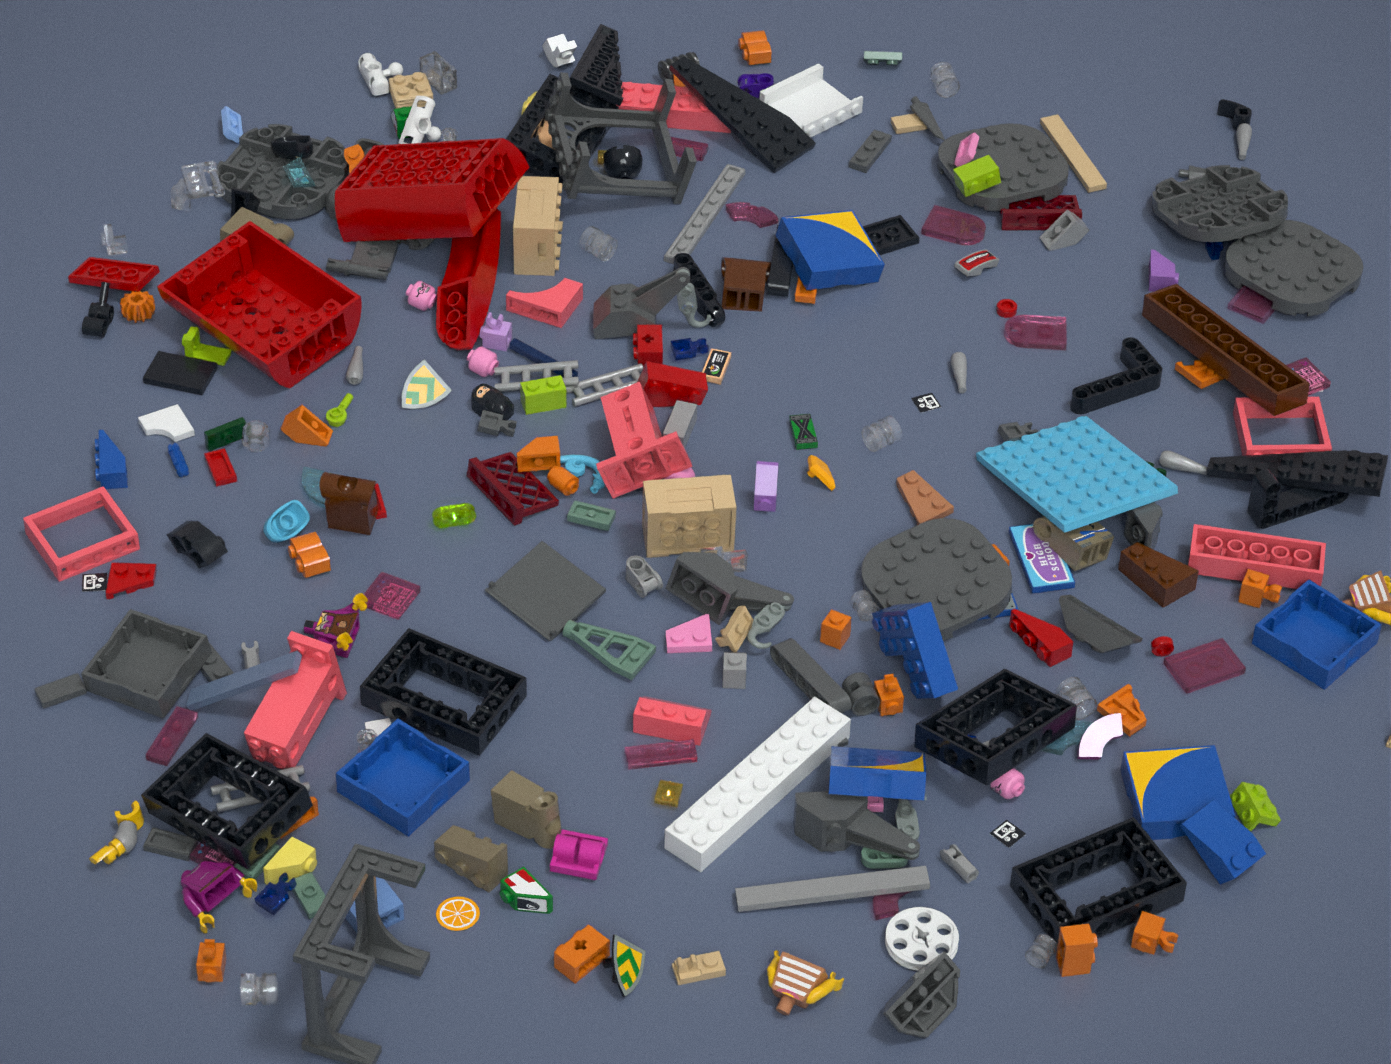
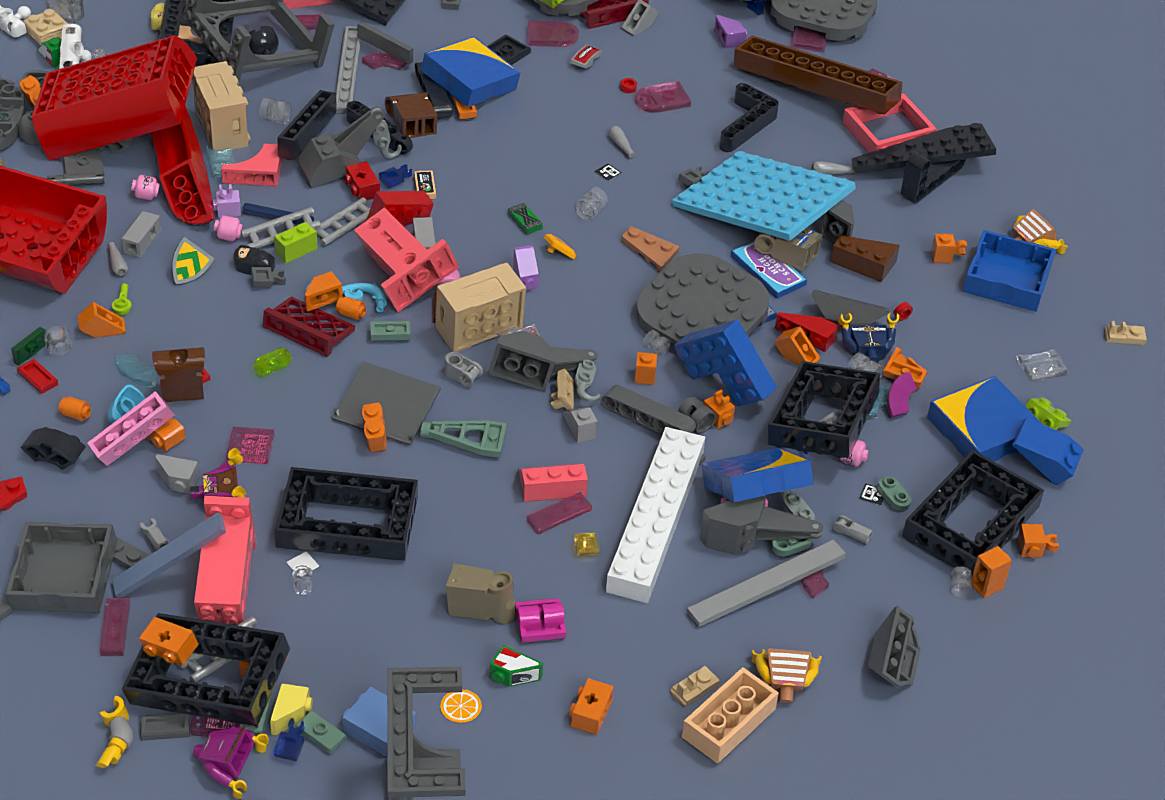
camera: 25 degrees left, 0 degrees up
(198, 762) = (168, 641): none -> orange brick
(237, 510) = (74, 408): none -> orange brick
(274, 545) = (131, 429): none -> bright pink brick
(304, 603) = (177, 472): none -> light grey slope
(392, 345) = (141, 234): none -> light grey brick
(403, 777) = (350, 600): blue tile -> none
(473, 857) = (451, 649): dark tan wedge -> none
(513, 282) = (217, 158): none -> clear light blue piece
(517, 611) = (374, 427): none -> orange brick
(619, 267) = (306, 124): none -> black brick
(626, 963) = (635, 704): shield -> none
(690, 636) = (528, 408): bright pink wing -> none
(712, 1005) = (730, 715): none -> light nougat brick
(756, 194) = (385, 42): none -> dark grey tile
(926, 931) = (861, 609): white wedge -> none
(1016, 653) = (796, 346): none -> orange slope
(1027, 837) = (893, 492): none -> sand green plate
(1101, 668) = (868, 339): none -> dark blue torso
(1199, 373) = (803, 98): orange wing -> none
(1204, 665) = (940, 317): clear pink tile -> none
(1232, 552) = (918, 224): coral brick -> none
(1287, 750) = (1042, 365): none -> clear plate

